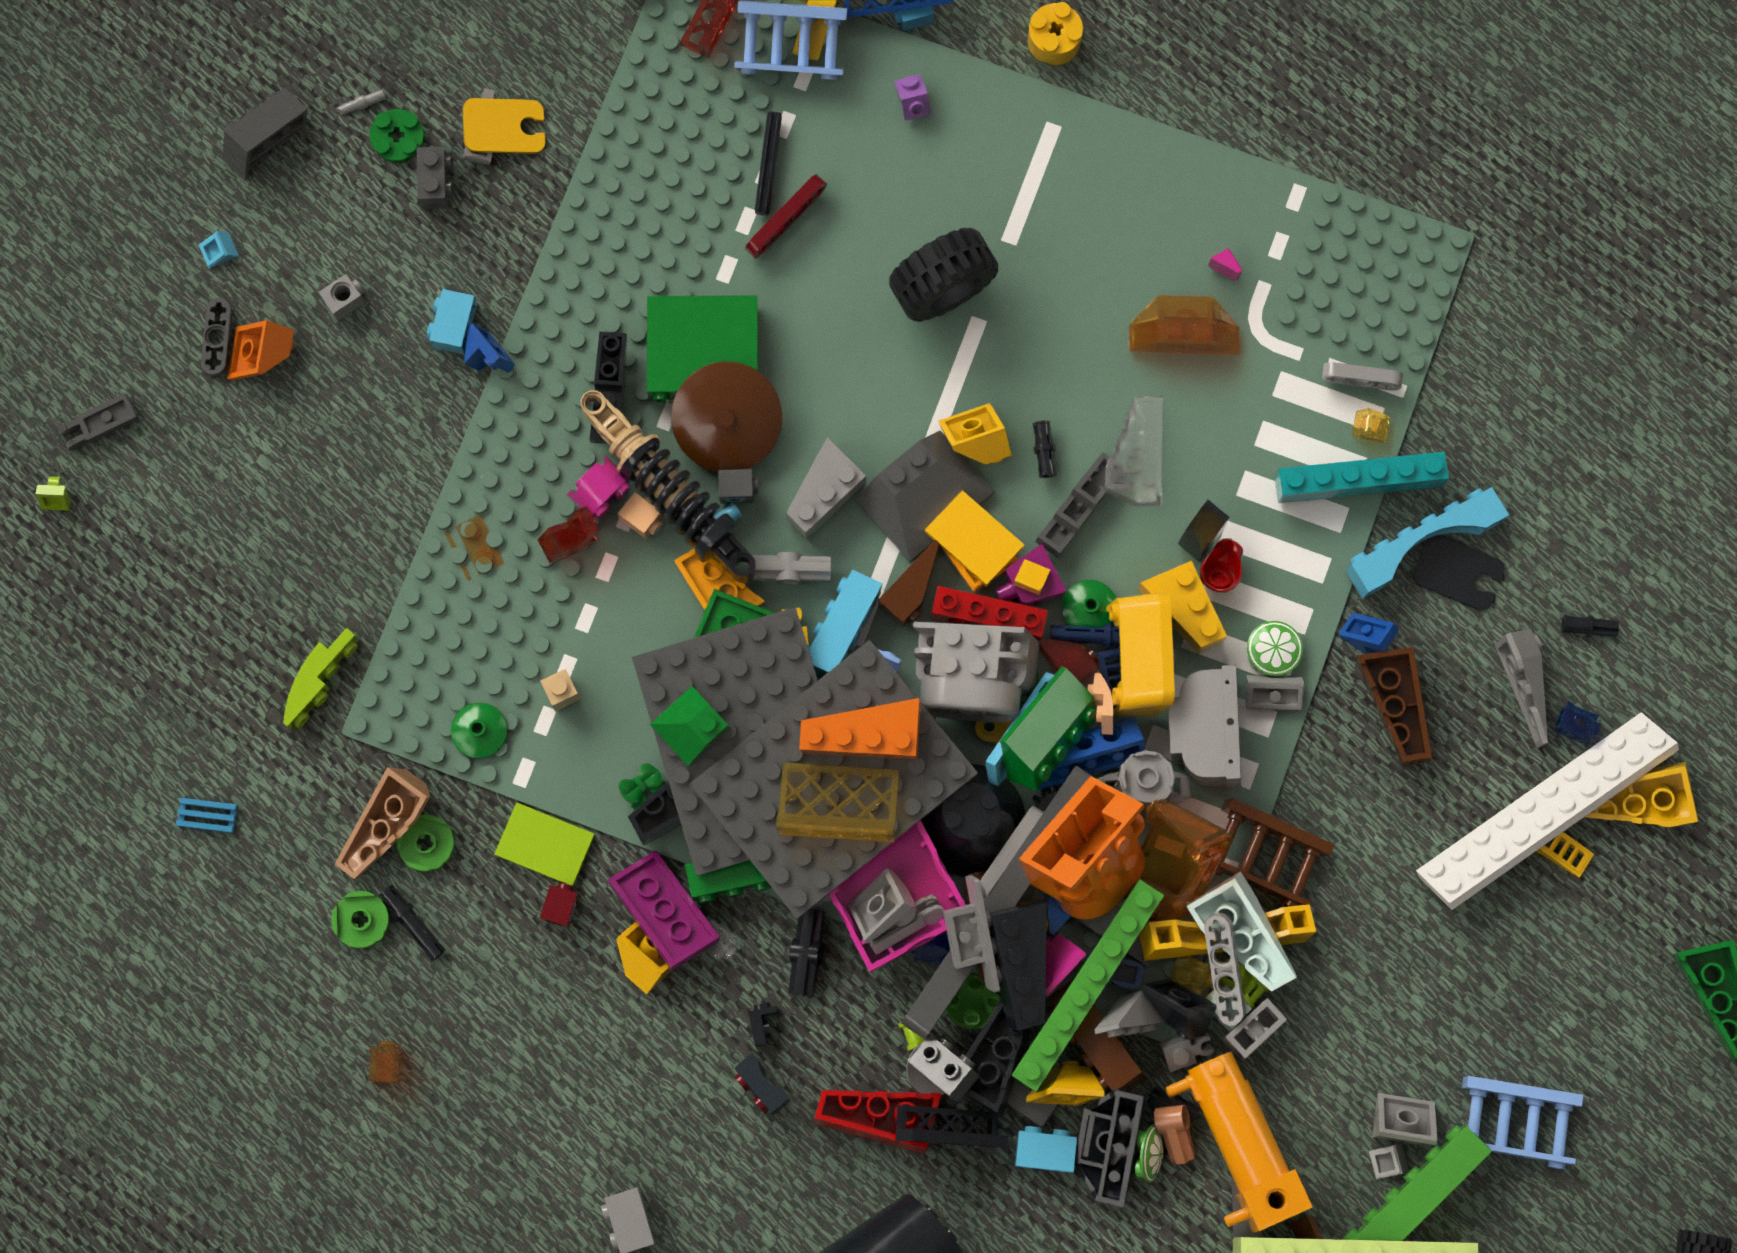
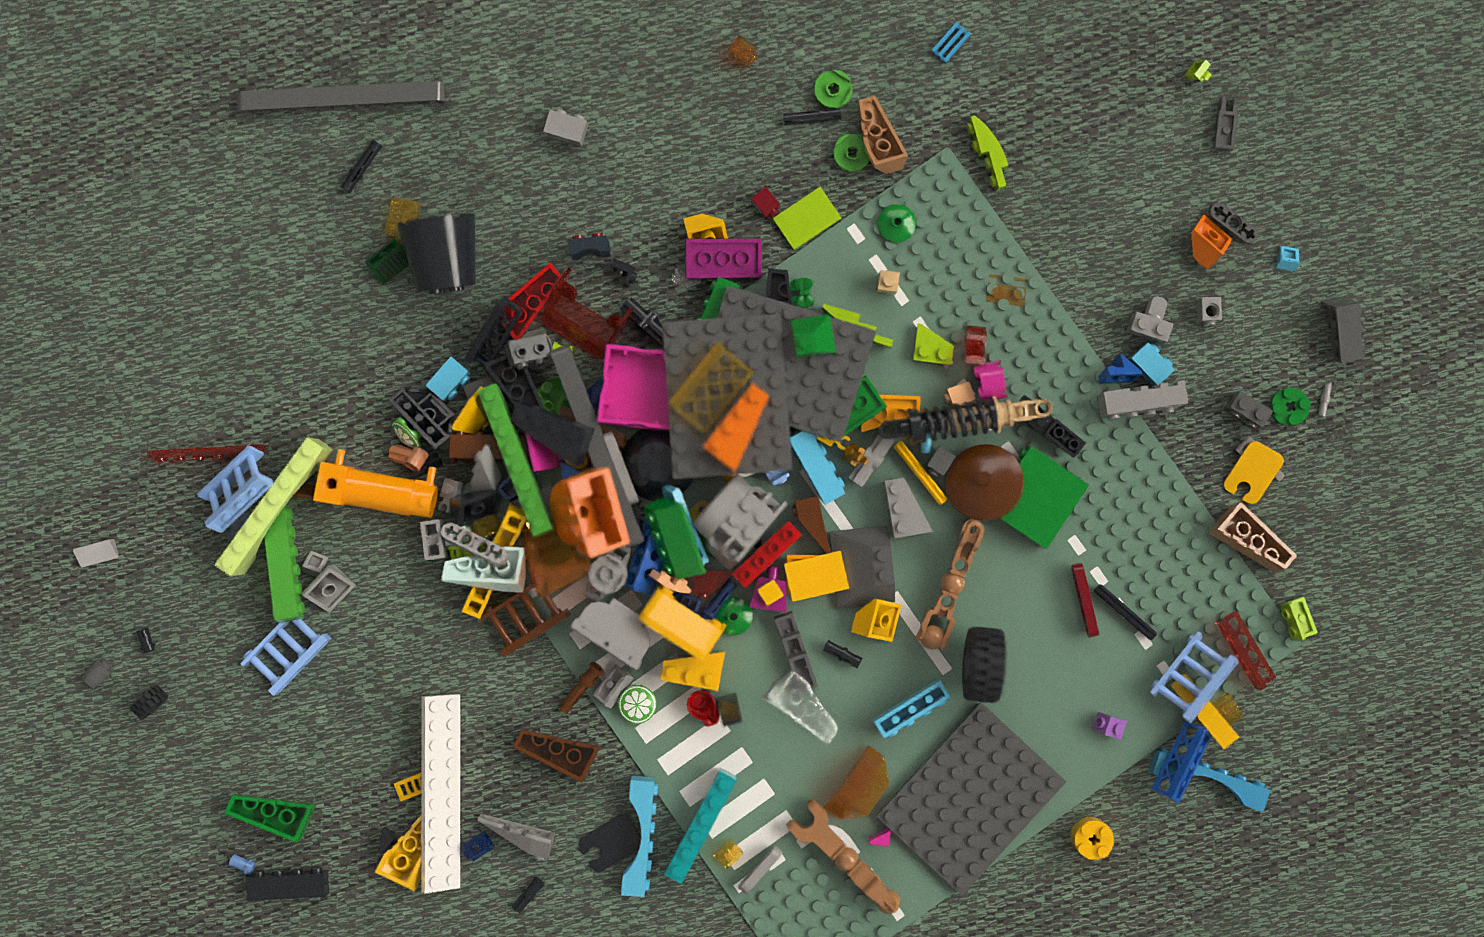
camera: 125 degrees right, 10 degrees up
(403, 352) = (1151, 324): none -> light grey brick
(503, 301) = (1142, 400): none -> light grey wedge
(582, 79) = (1251, 537): none -> medium nougat wedge
(604, 587) = (931, 347): none -> lime wing
(635, 701) = (853, 317): none -> lime slope
(765, 501) = (920, 472): none -> yellow axle
(798, 590) = (854, 454): none -> pearl gold plate
(863, 1030) = (580, 323): none -> clear red windscreen
(872, 375) = (951, 585): none -> medium nougat piece
(882, 905) = (637, 376): light grey slope -> none
(927, 912) = (621, 382): light grey hinge -> none
(970, 935) = (585, 411): light grey bracket -> none
(1052, 327) = (911, 708): none -> medium azure brick
(1107, 196) = (971, 798): none -> dark grey plate
(1278, 290) = (845, 858): none -> medium nougat piece
(1291, 726) = (586, 681): none -> reddish brown pin
(1368, 633) = (609, 764): blue slope -> none
(1648, 836) = (386, 839): none -> black slope

